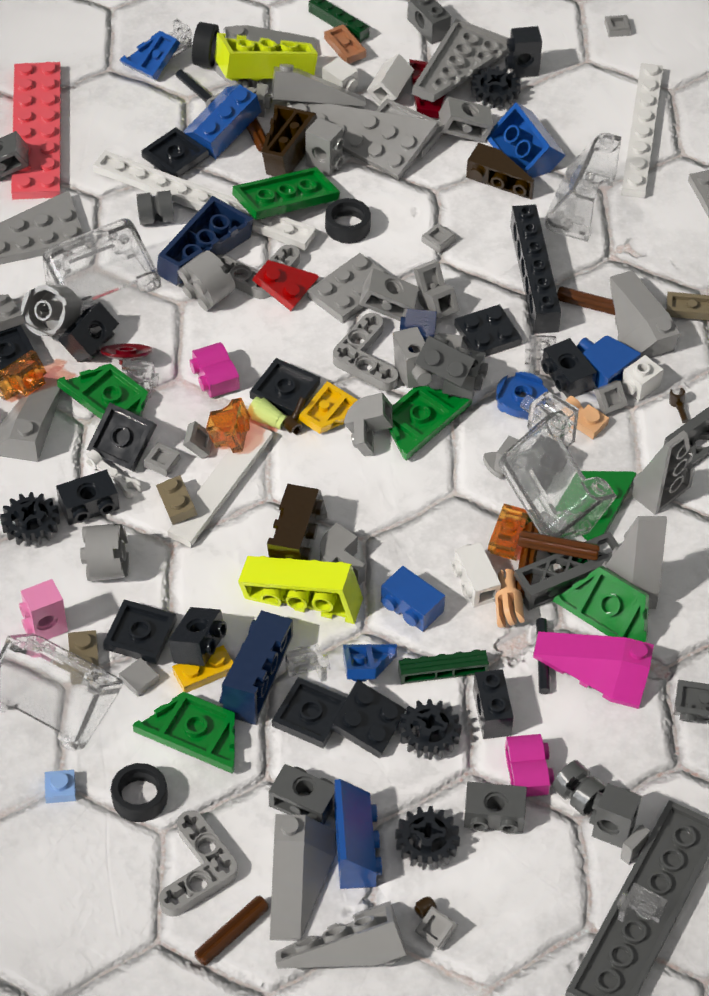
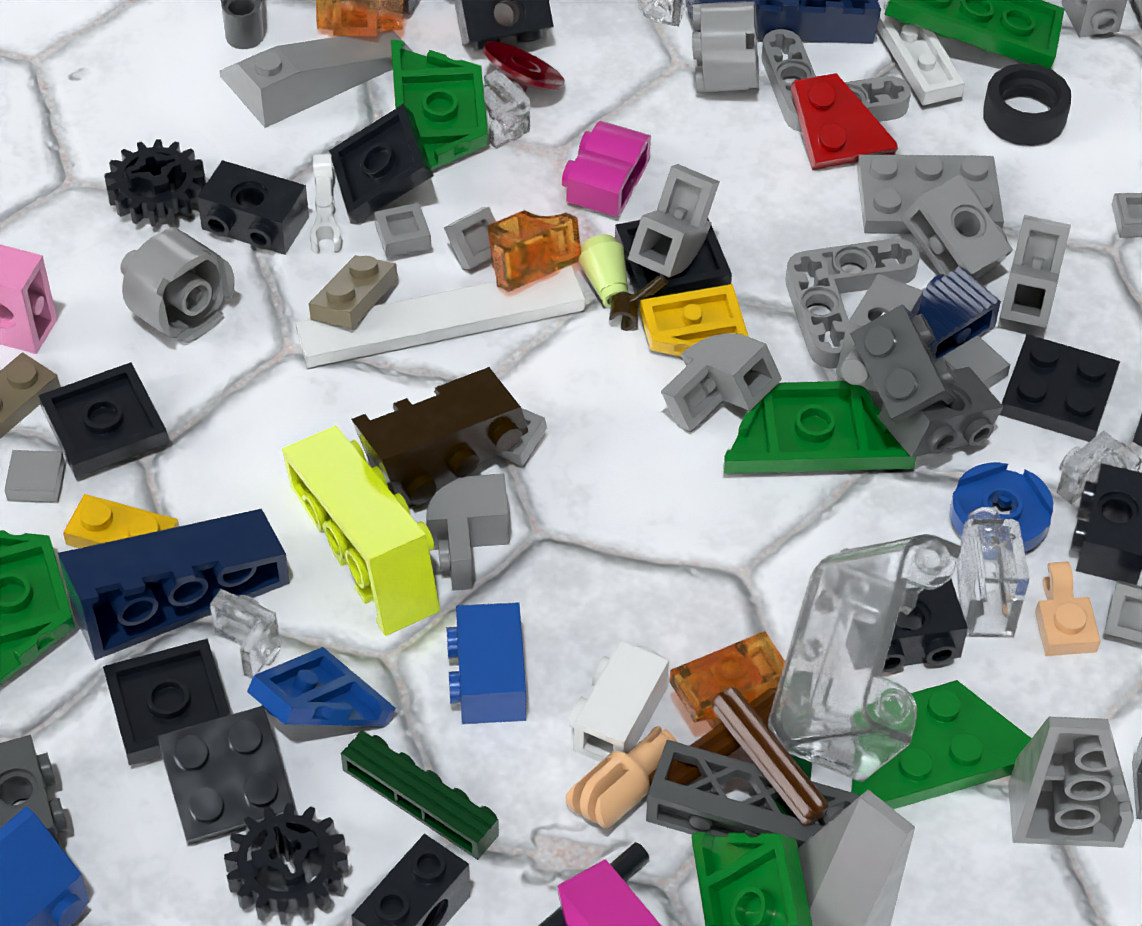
camera: 45 degrees right, 0 degrees up
(197, 636) = (146, 477): black brick -> none
(283, 370) = (675, 231): none -> light grey brick

